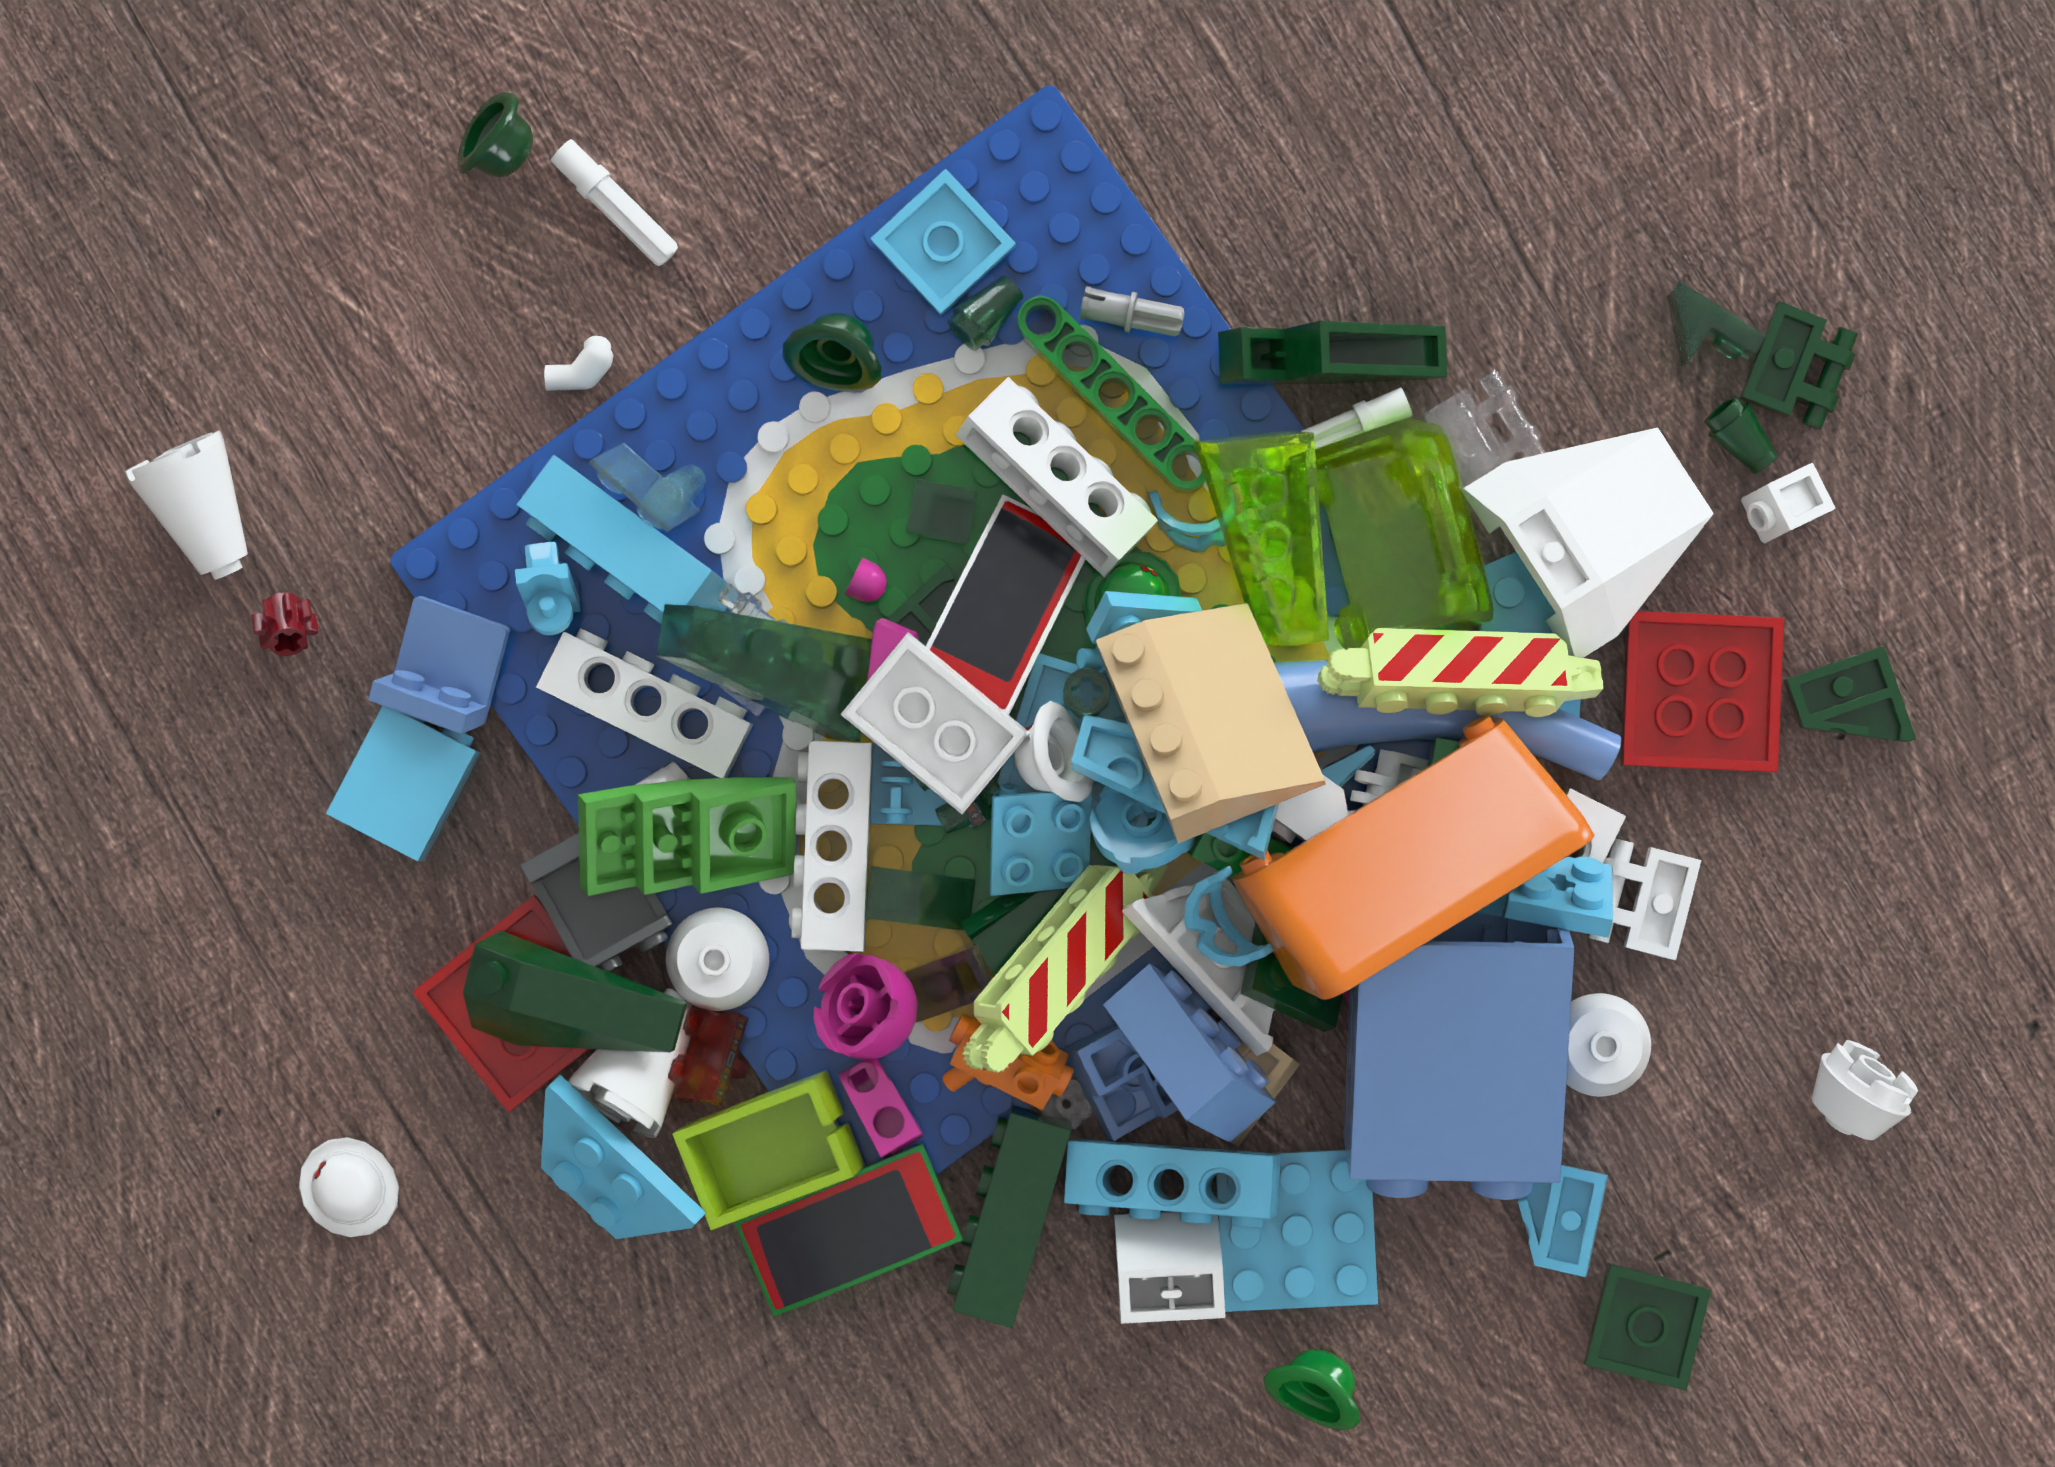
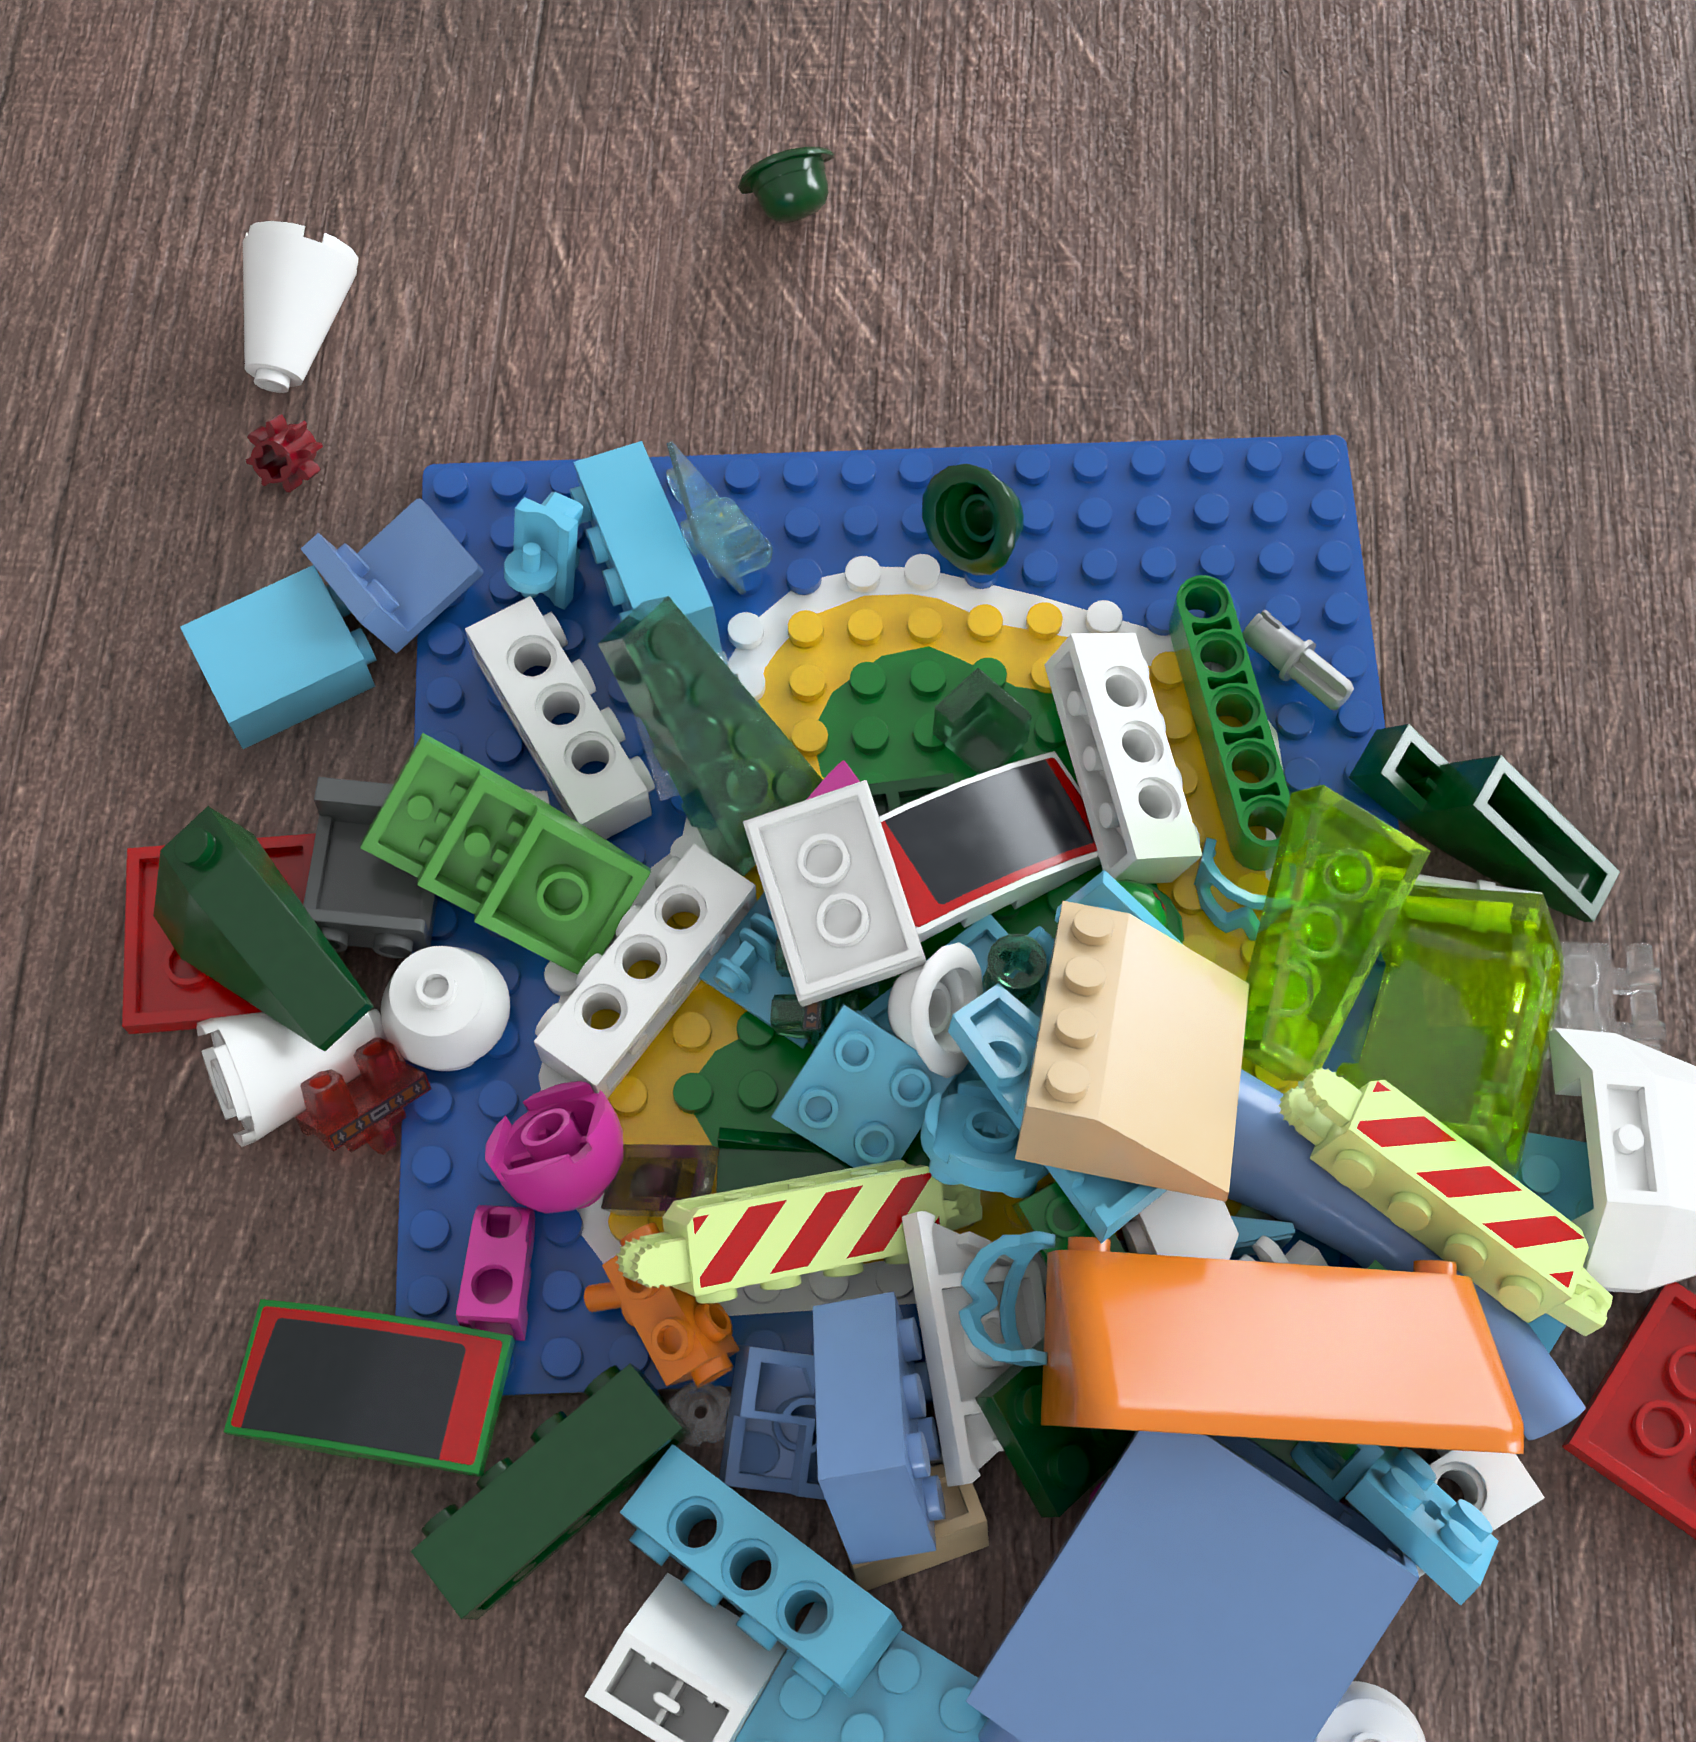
camera: 35 degrees right, 20 degrees down
(585, 370) = (727, 416): white arm -> none
(595, 184) = (854, 278): white axle -> none
(607, 1170) = (168, 1142): medium azure wing -> none
(768, 1150) = (346, 1232): lime piece -> none
(867, 583) = (859, 743): dark pink hinge -> none
(919, 898) = (692, 1075): clear green slope -> none
(943, 242) = (1149, 493): medium azure plate -> none
(984, 314) = (1146, 576): clear green cone -> none
(1660, 901) = (1524, 1635): white plate -> none

